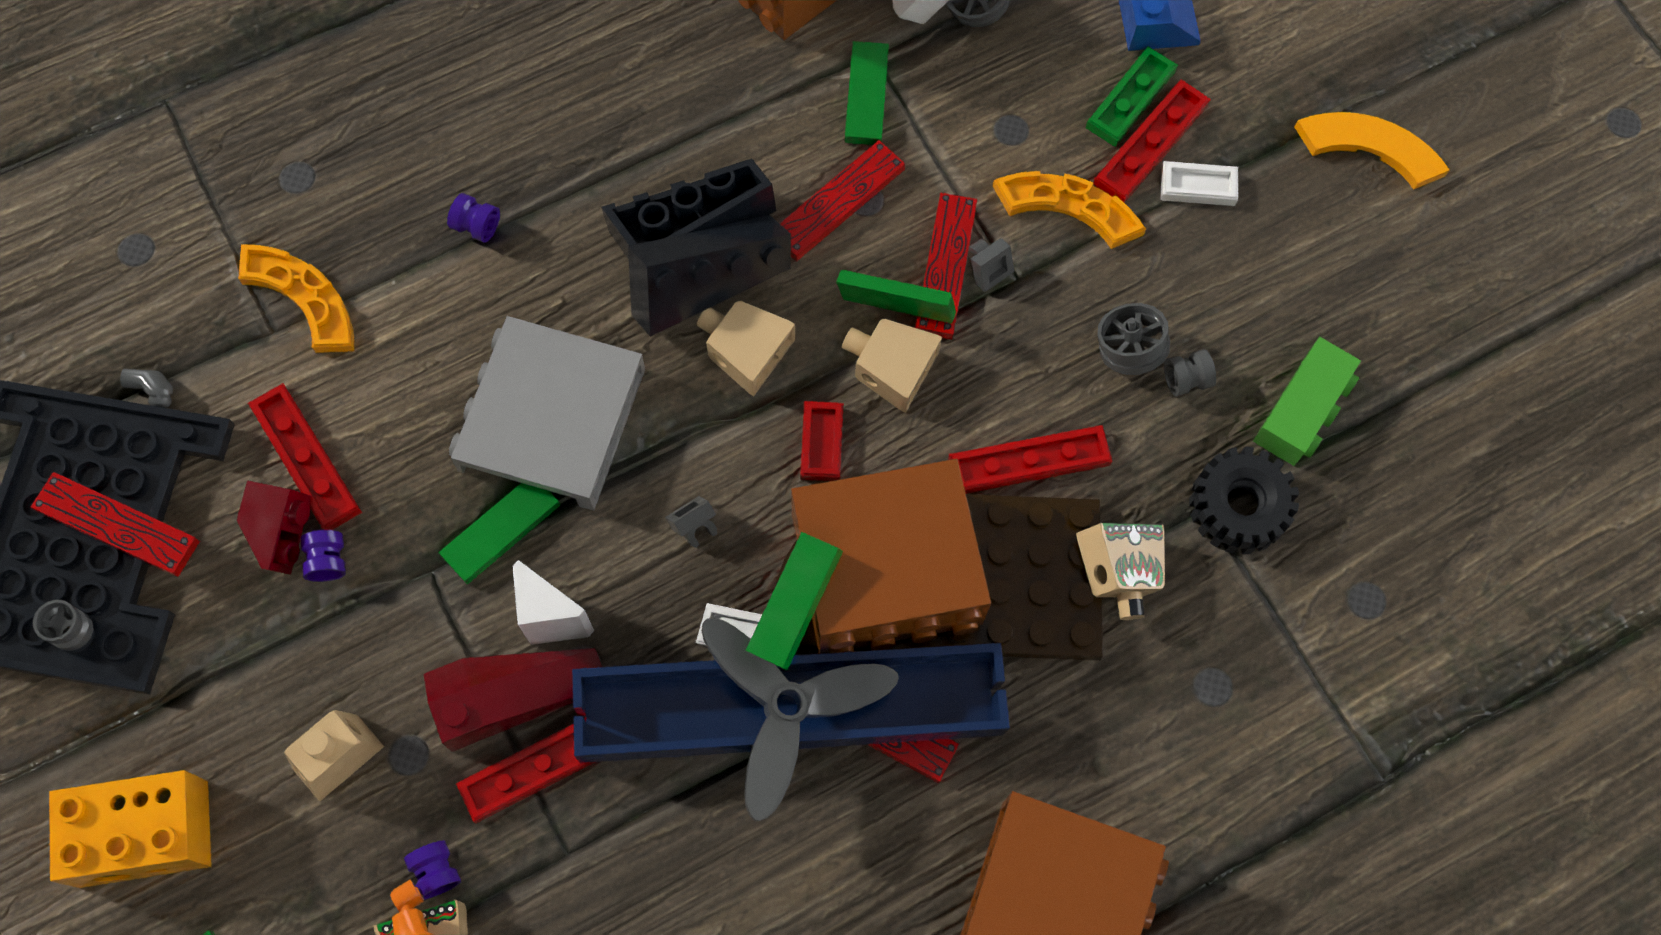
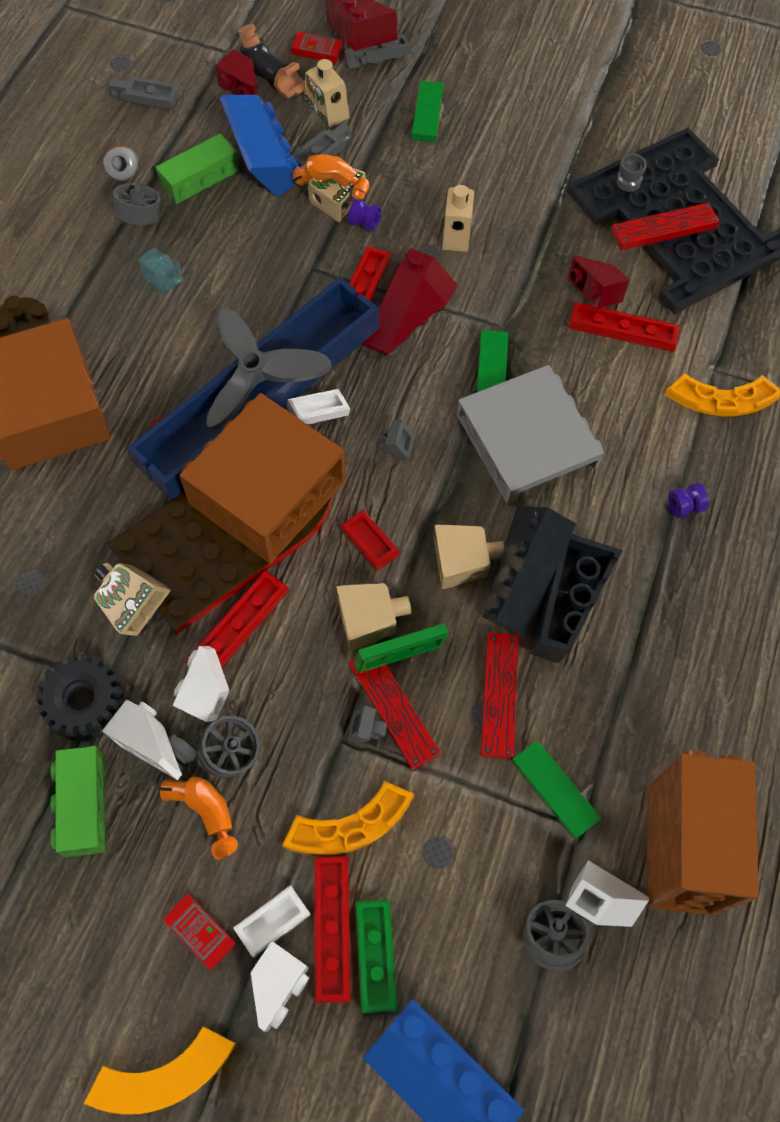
camera: 140 degrees right, 5 degrees down
(129, 829) = (503, 135): light orange piece -> none
(152, 382) = (732, 299): dark grey arm -> none
(323, 555) = (559, 289): dark purple wheel -> none
(546, 612) = (425, 336): white slope -> none
(794, 600) = (289, 397): green tile -> none
(1117, 408) = (204, 686): none -> white slope
(1189, 310) = (212, 807): none -> orange arm
(1211, 398) = (143, 736): none -> white slope
(1229, 132) = (273, 983): none -> white slope
(1268, 221) = (199, 932): none -> red tile

